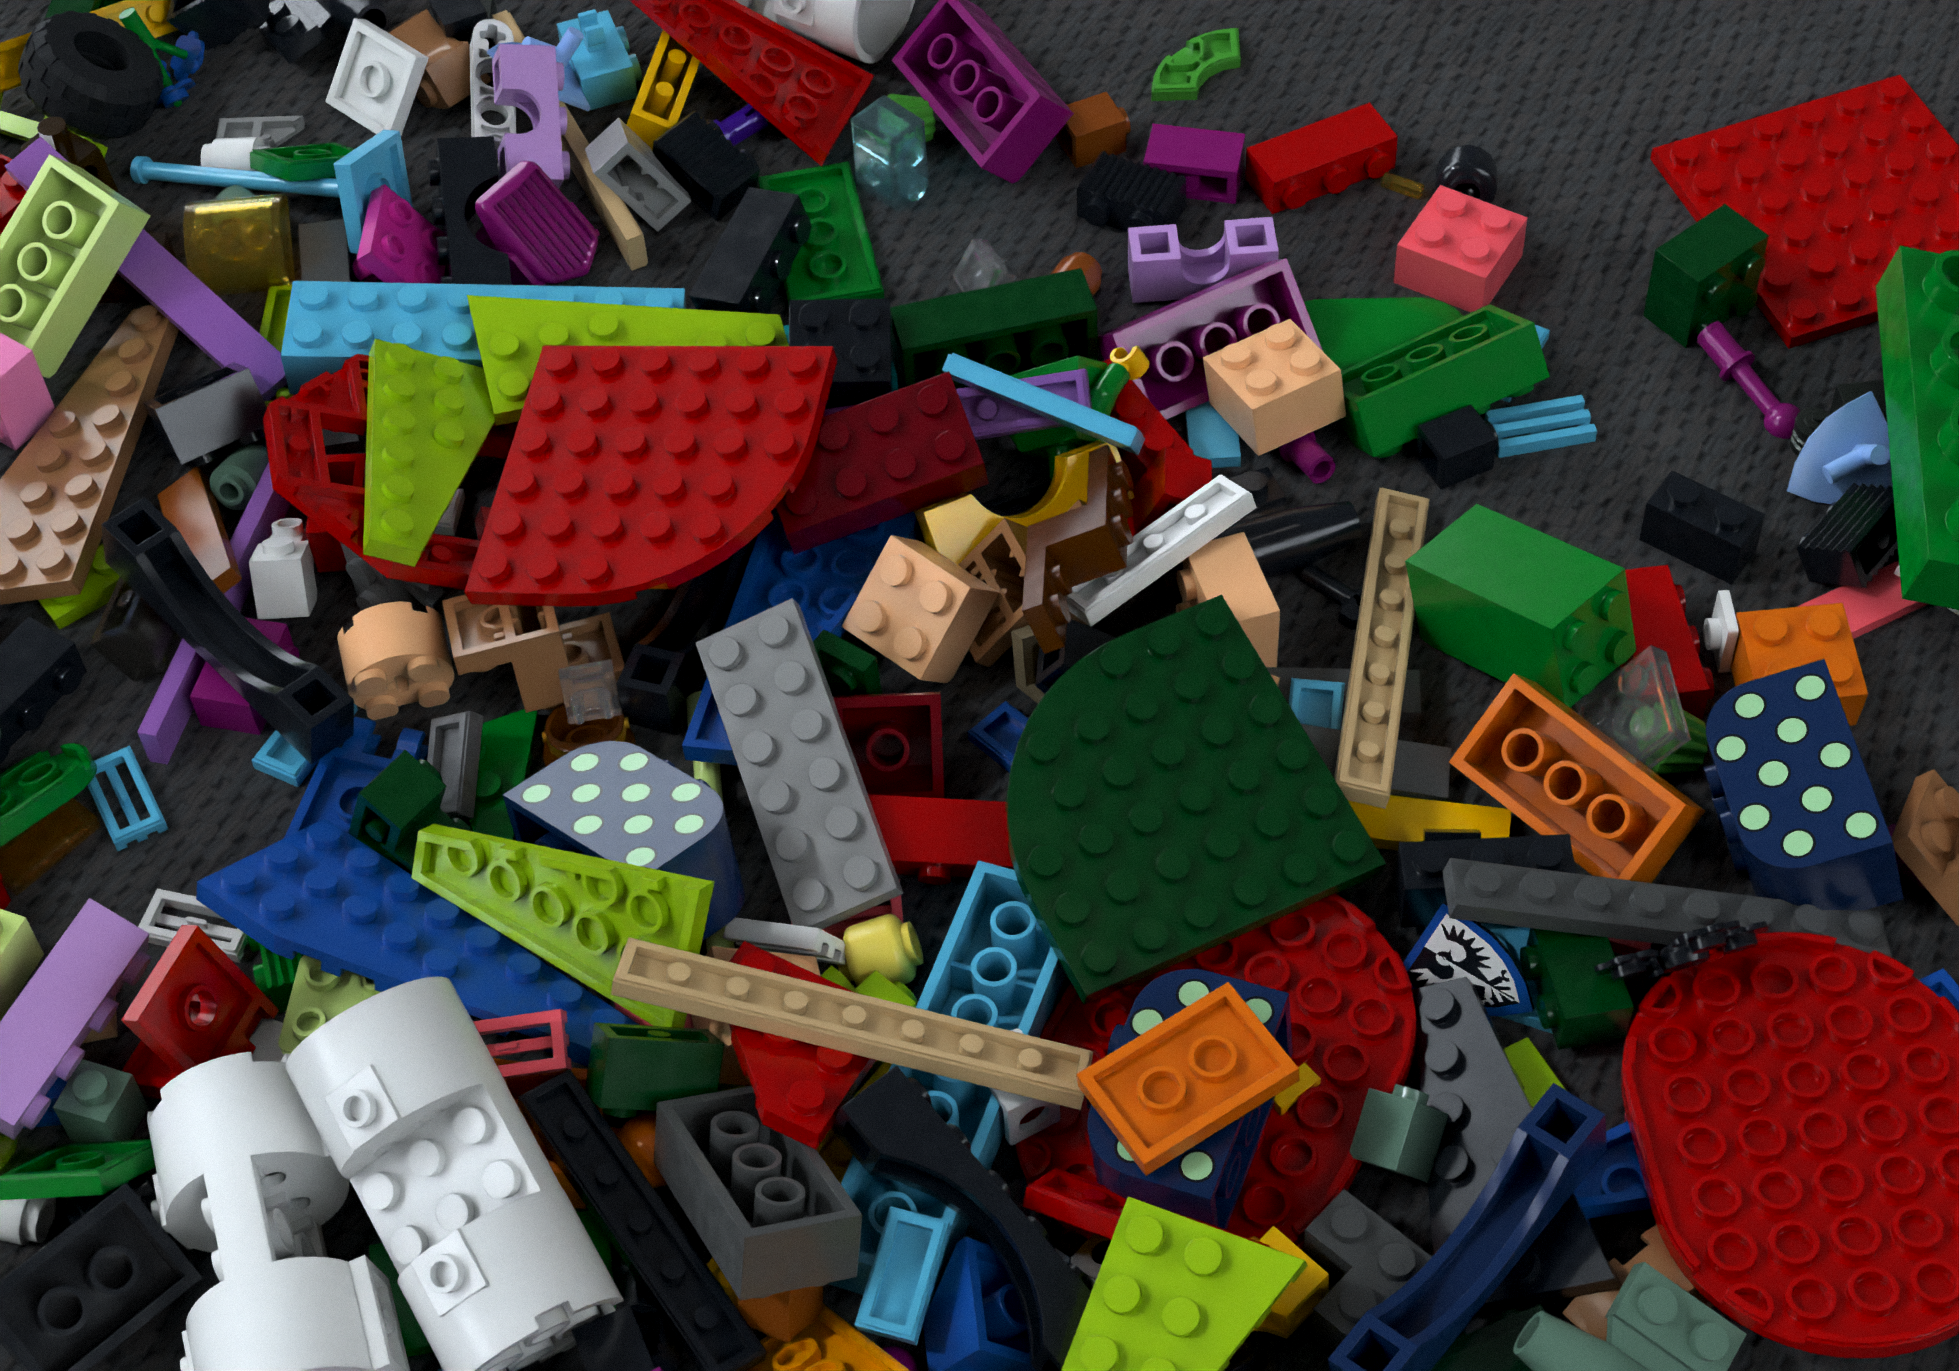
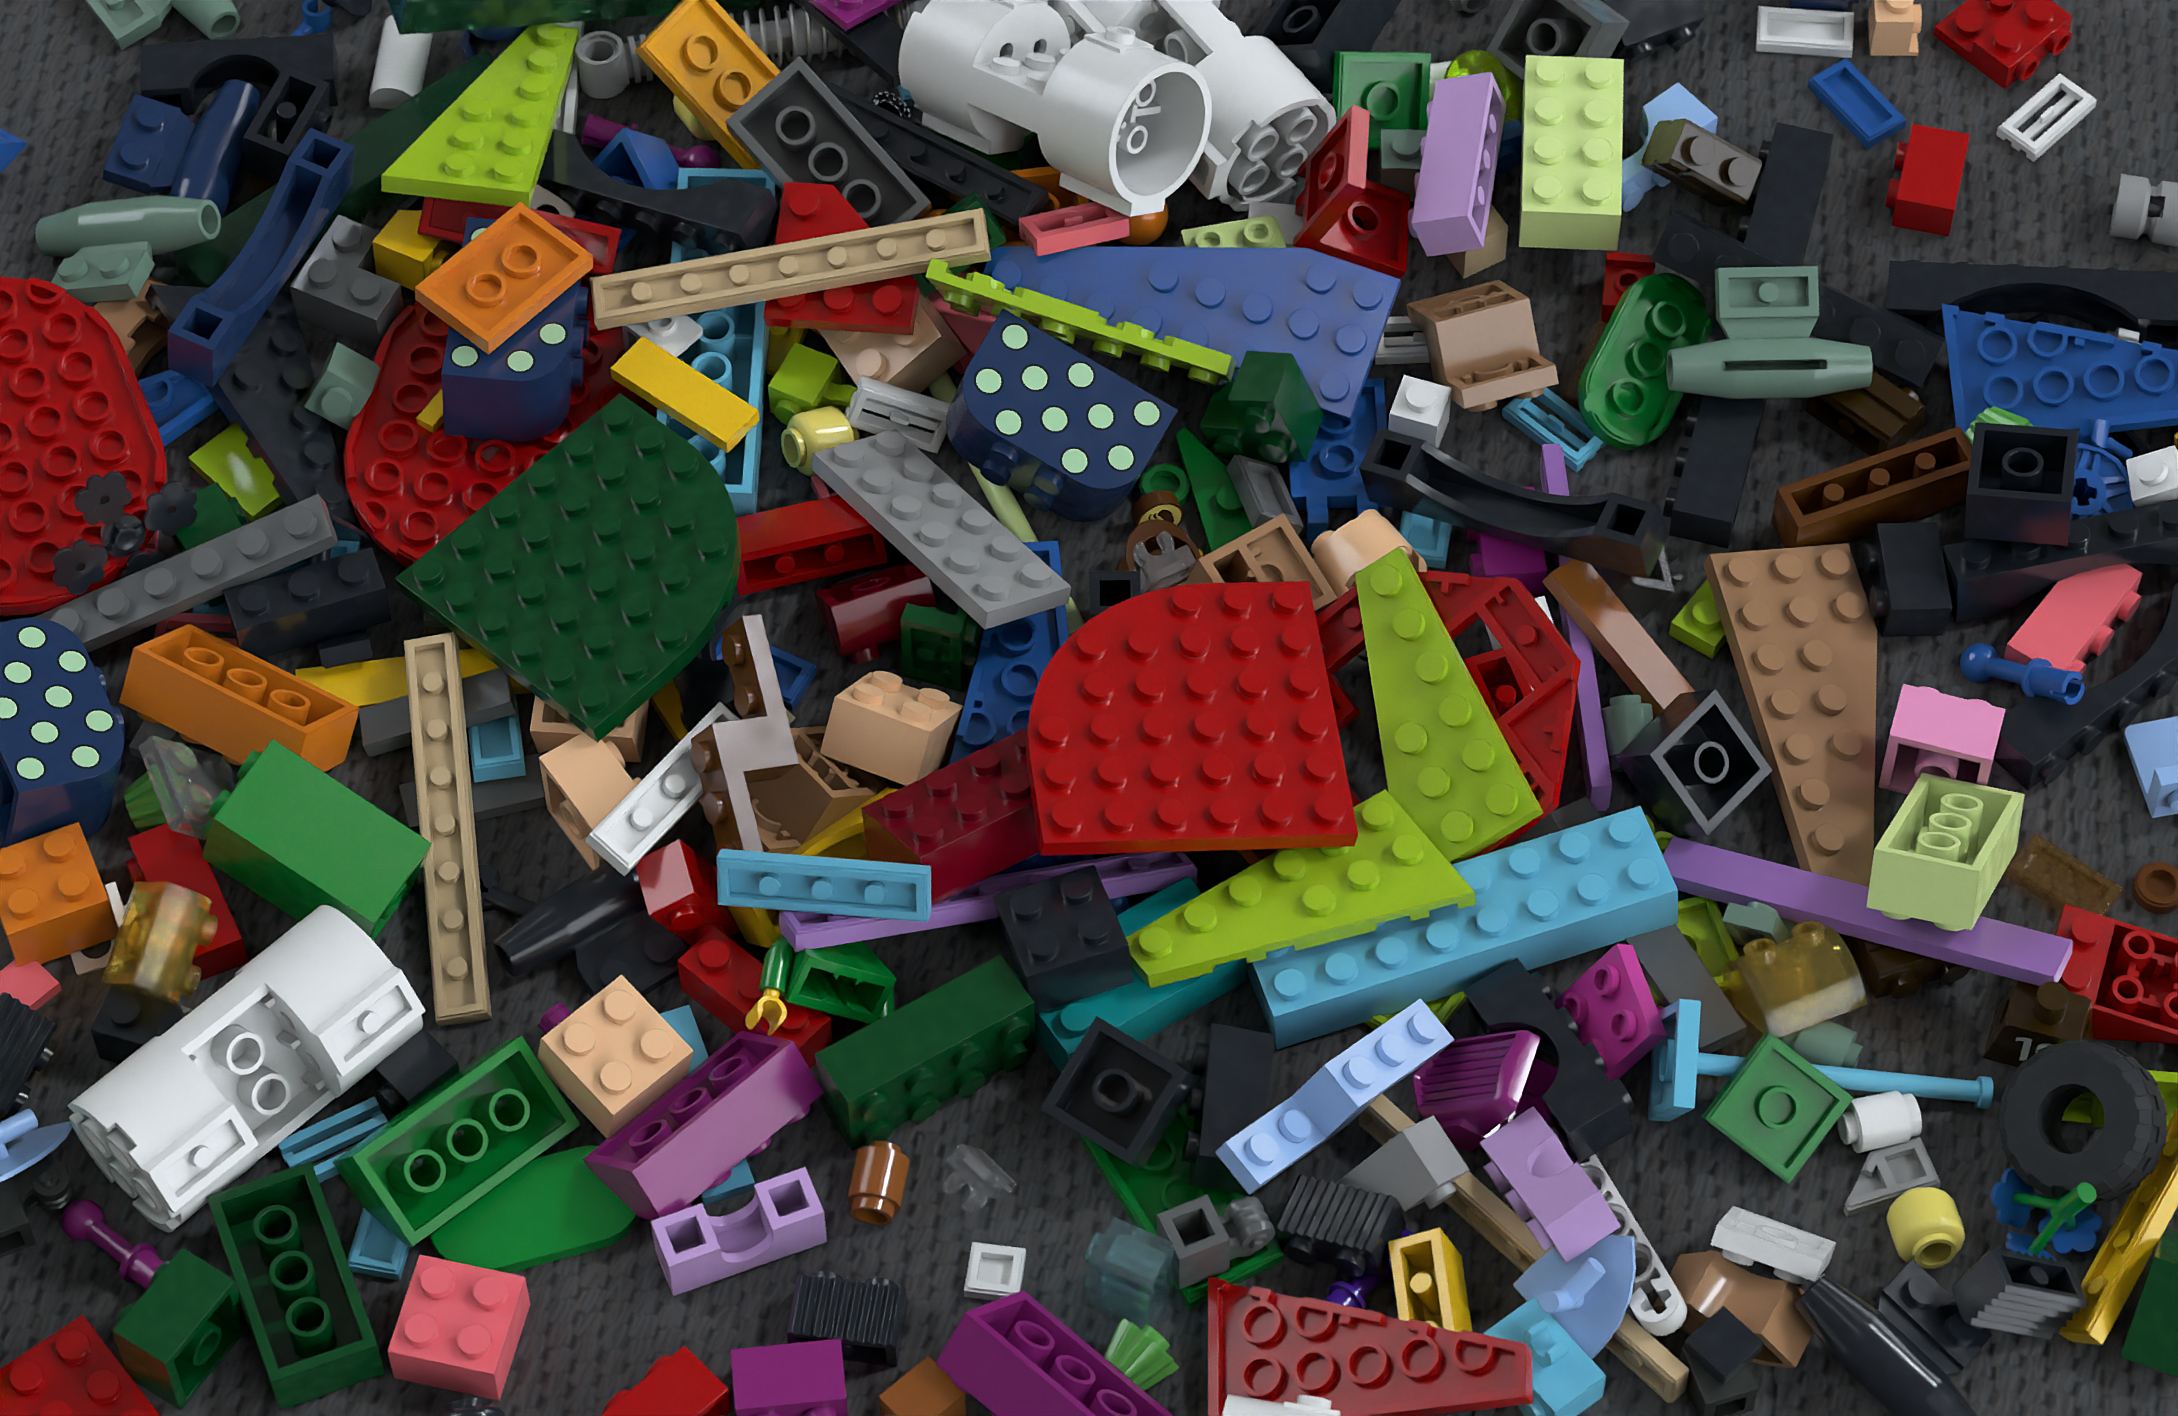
camera: 160 degrees right, 5 degrees up
(150, 849) = (1483, 345): none -> medium nougat bracket
(241, 290) = (1755, 923): none -> sand green bracket
(252, 82) = (1926, 1227): none -> light yellow head
(252, 813) = (1421, 410): none -> white brick
(662, 217) = (1334, 1096): none -> light blue bracket
(822, 166) = (1209, 1241): none -> dark grey brick
(843, 254) = (1118, 1093): none -> black brick
(903, 1275) = (697, 154): medium azure tile -> none
(996, 218) = (994, 1271): none -> white tile
(1014, 974) = (685, 394): none -> yellow tile
(1599, 301) = (295, 1285): none -> dark green brick
(1692, 544) = (160, 941): none -> clear yellow brick
(1694, 399) = (246, 1067): none -> white cylinder

